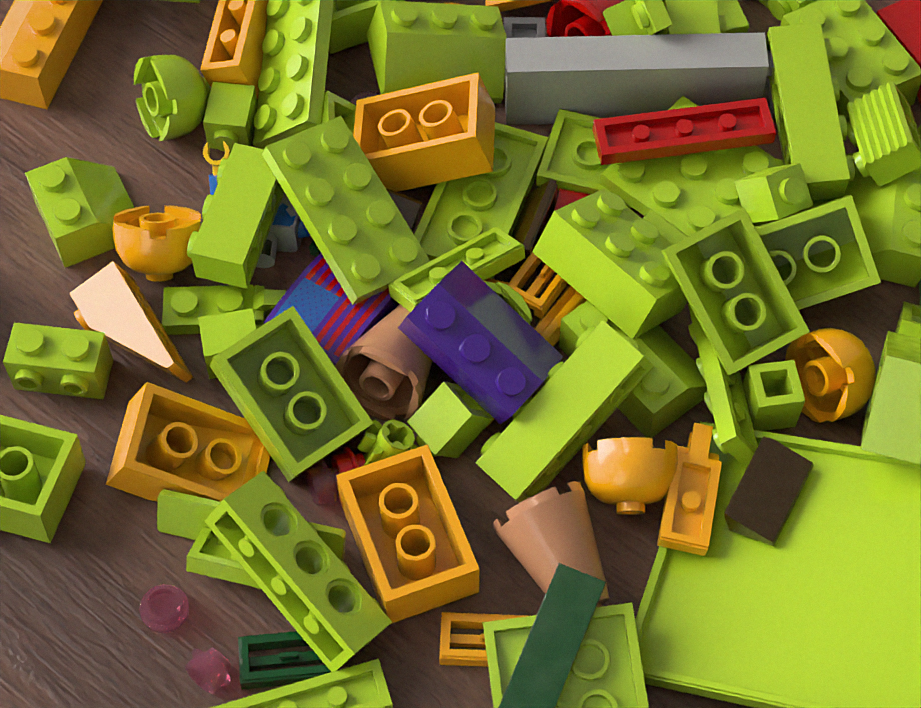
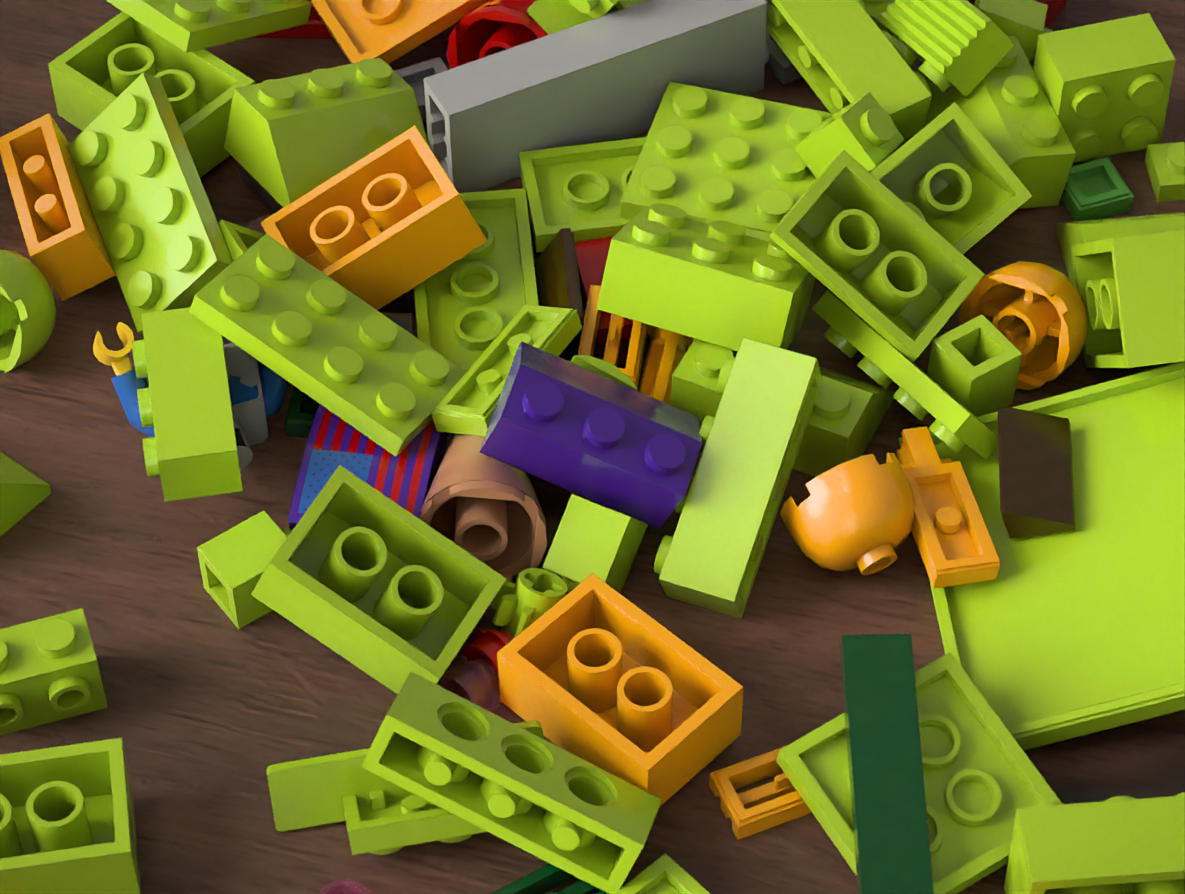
camera: 25 degrees left, 10 degrees down
(117, 306) = (118, 601): slope -> none
(155, 241) = (86, 481): light orange cylinder -> none
(183, 448) = (256, 705): light orange slope -> none
(186, 304) = (167, 552): lime hinge -> none
(230, 115) = (90, 302): lime brick -> none
(550, 532) = (798, 624): nougat cone -> none
(683, 131) = (700, 112): red plate -> none

